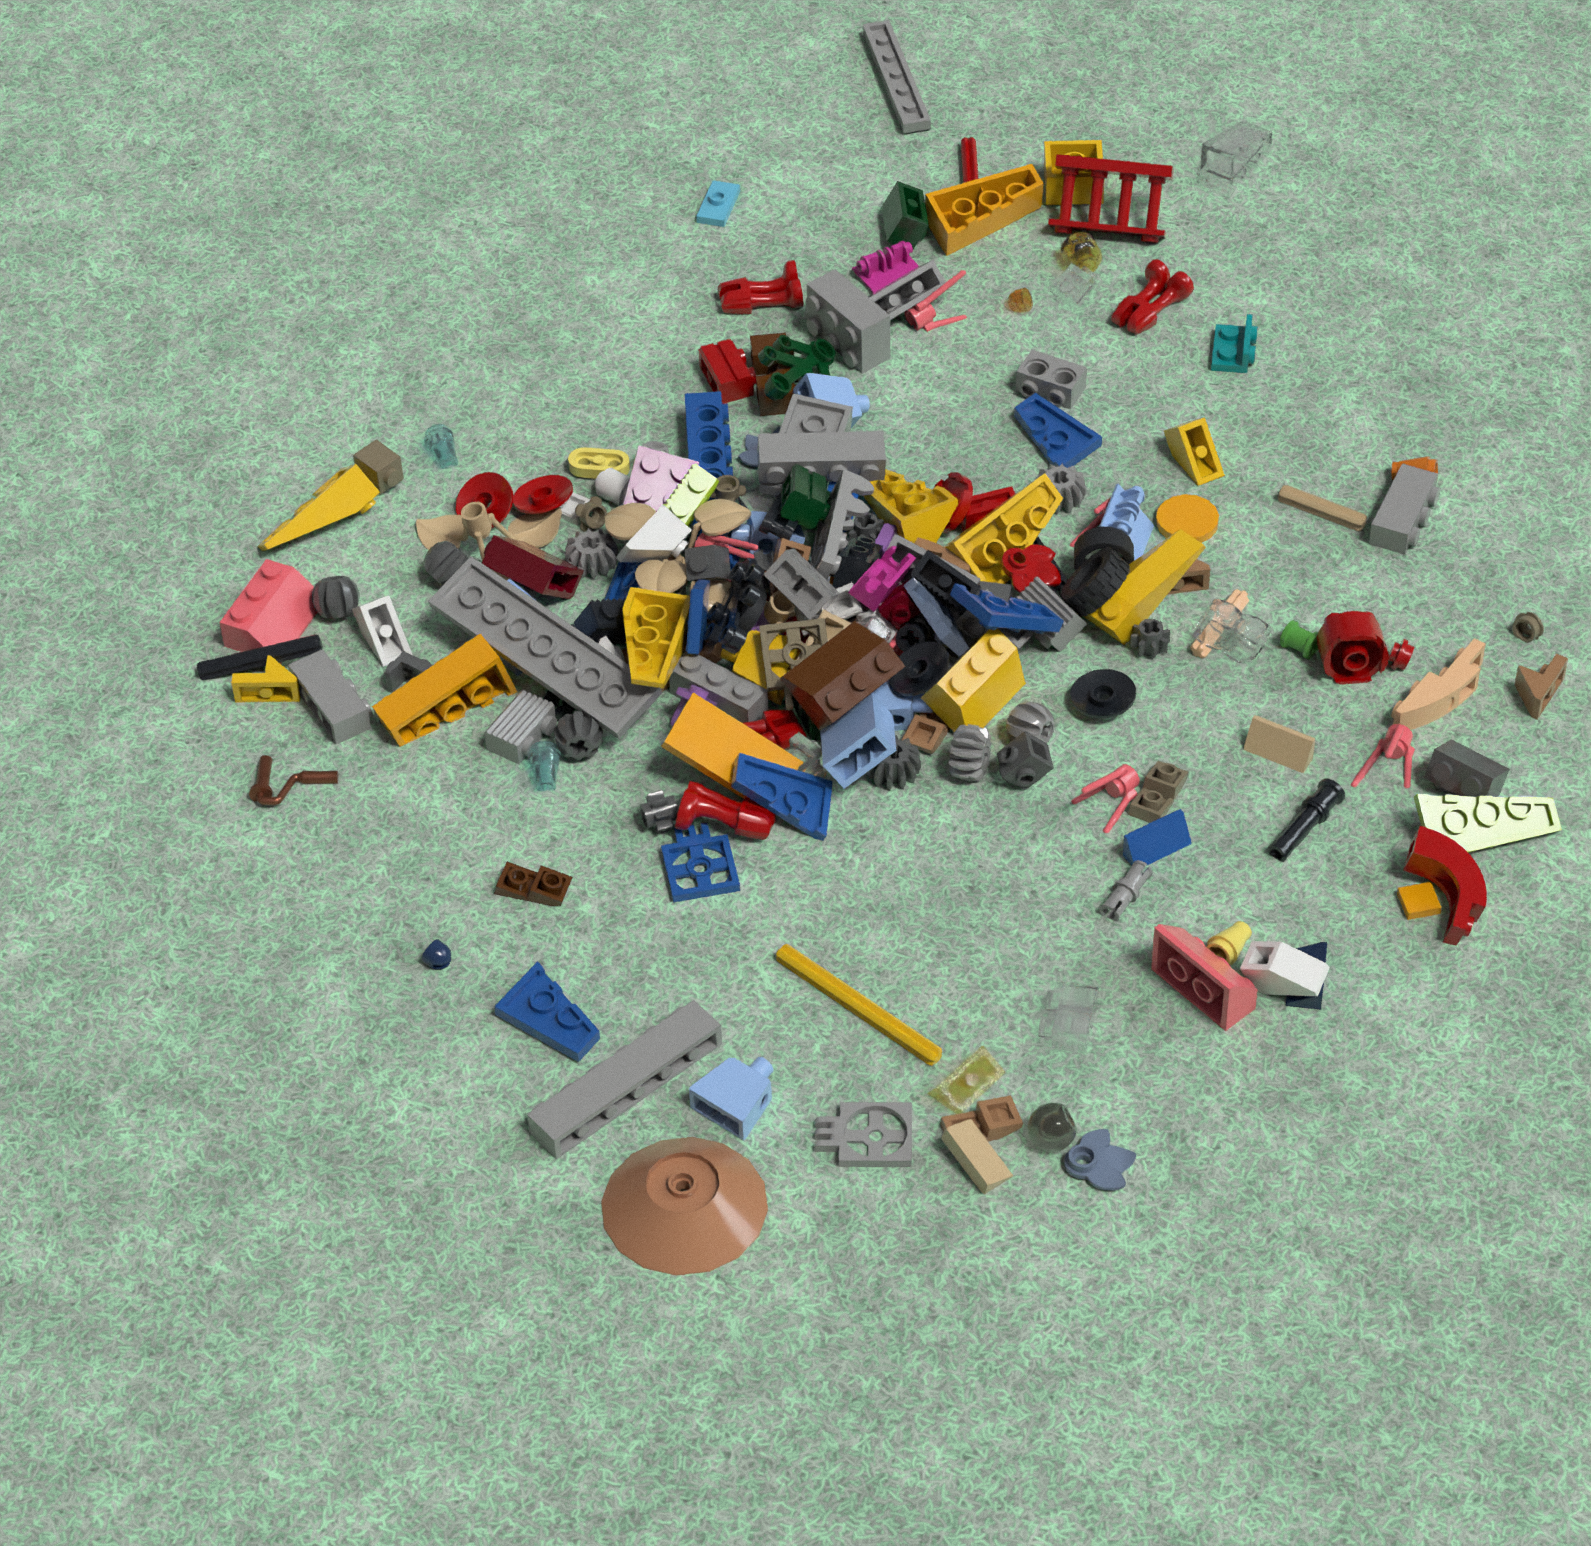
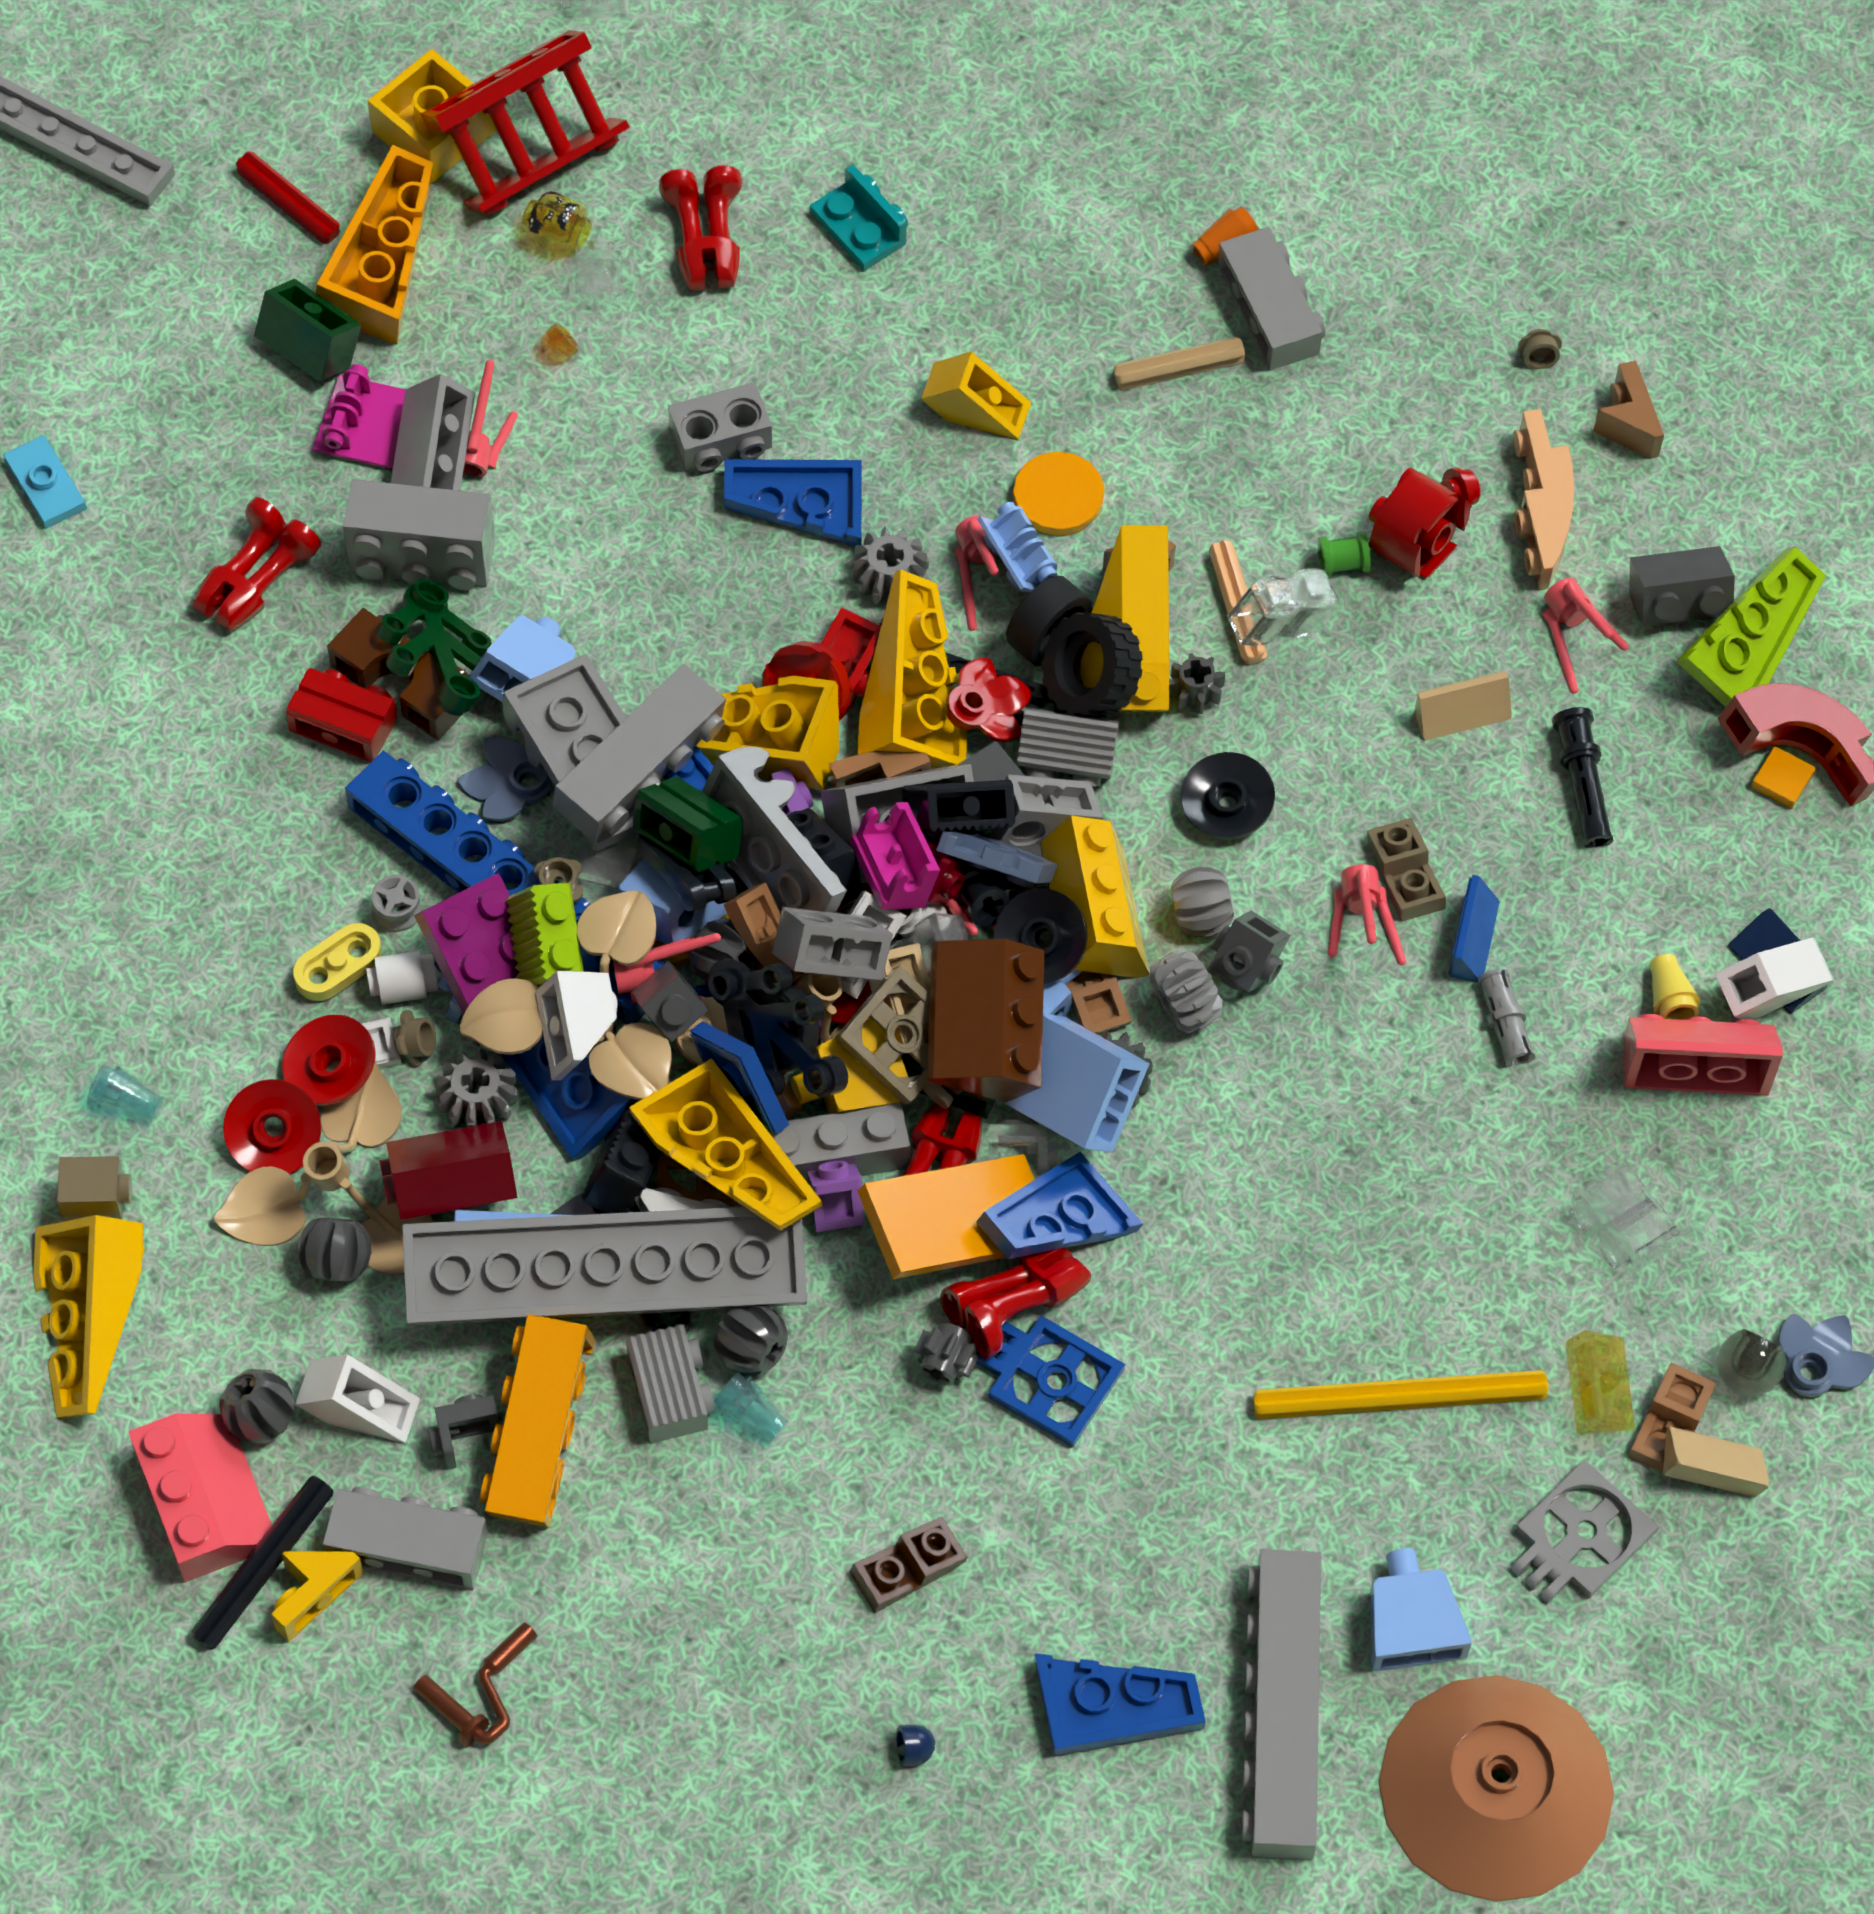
camera: 50 degrees left, 15 degrees up
(1013, 615) = (1068, 788): blue wing -> none

